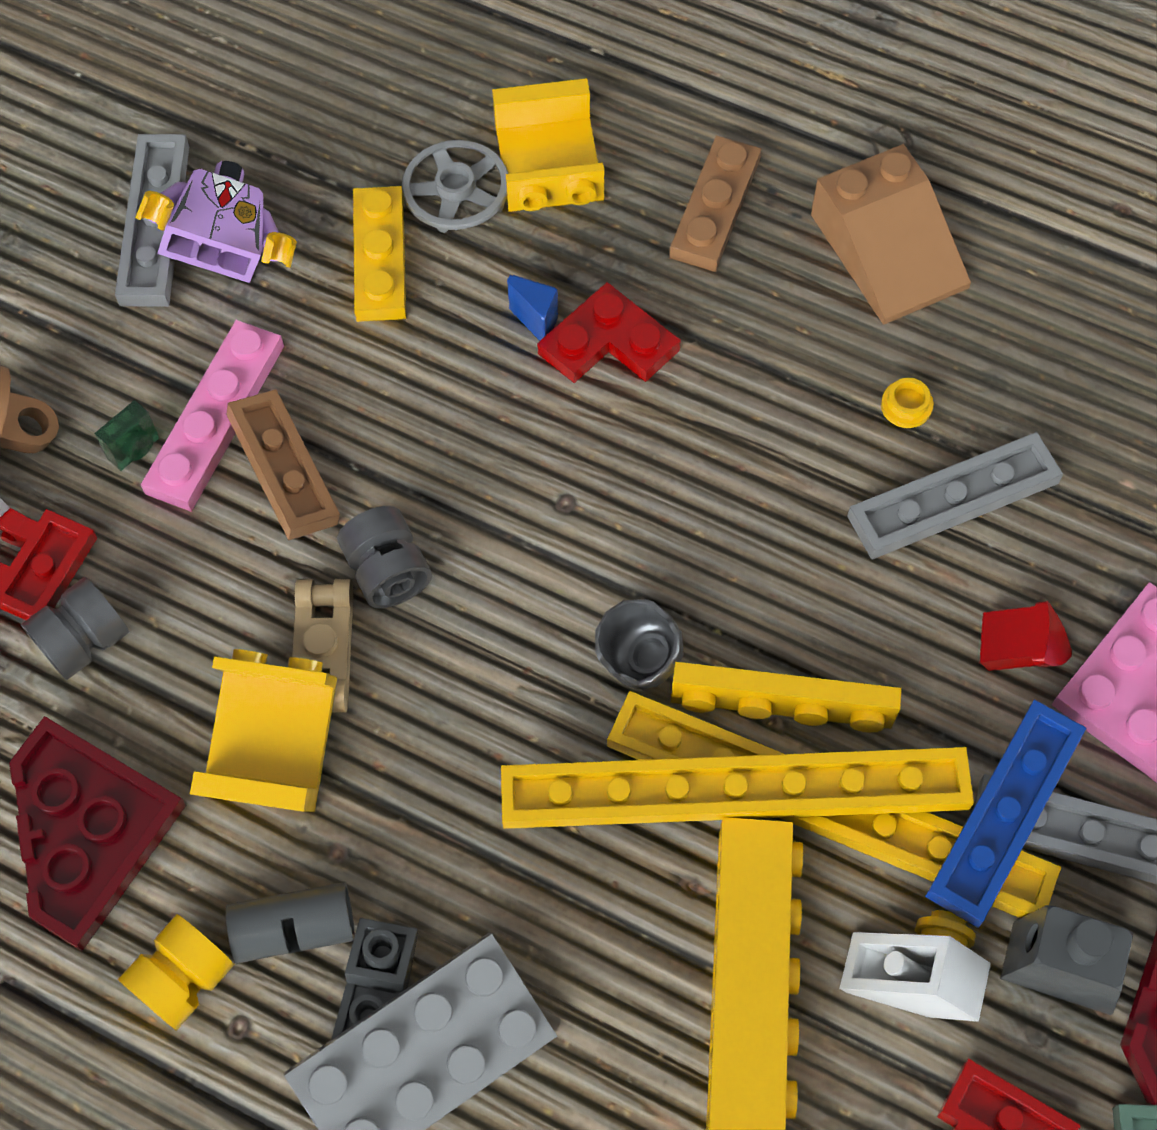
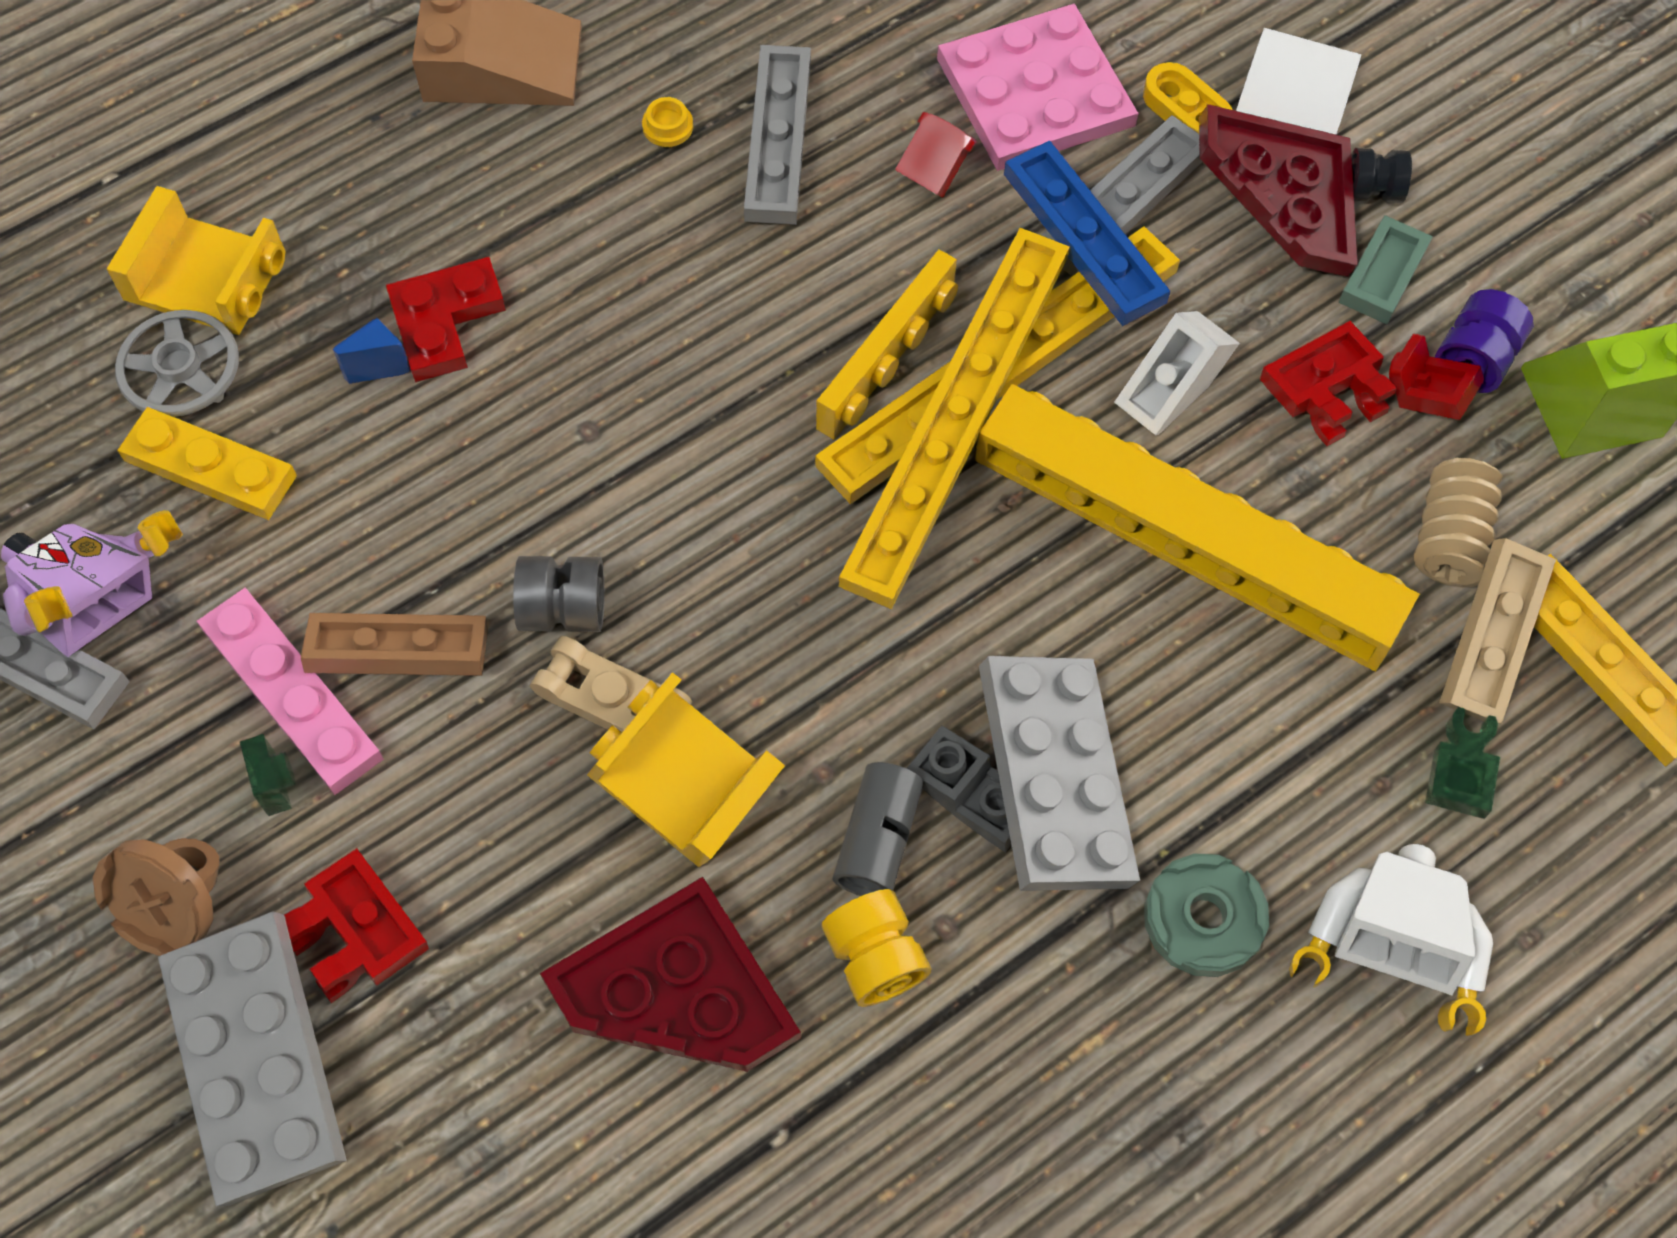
camera: 65 degrees left, 0 degrees up
(75, 628) = (462, 914): flat silver wheel -> none
(638, 643) = (777, 425): flat silver hair -> none
(715, 203) = (360, 163): medium nougat plate -> none
(946, 924) = (1149, 329): yellow plate -> none
(1071, 957) = (1236, 246): dark grey torso -> none

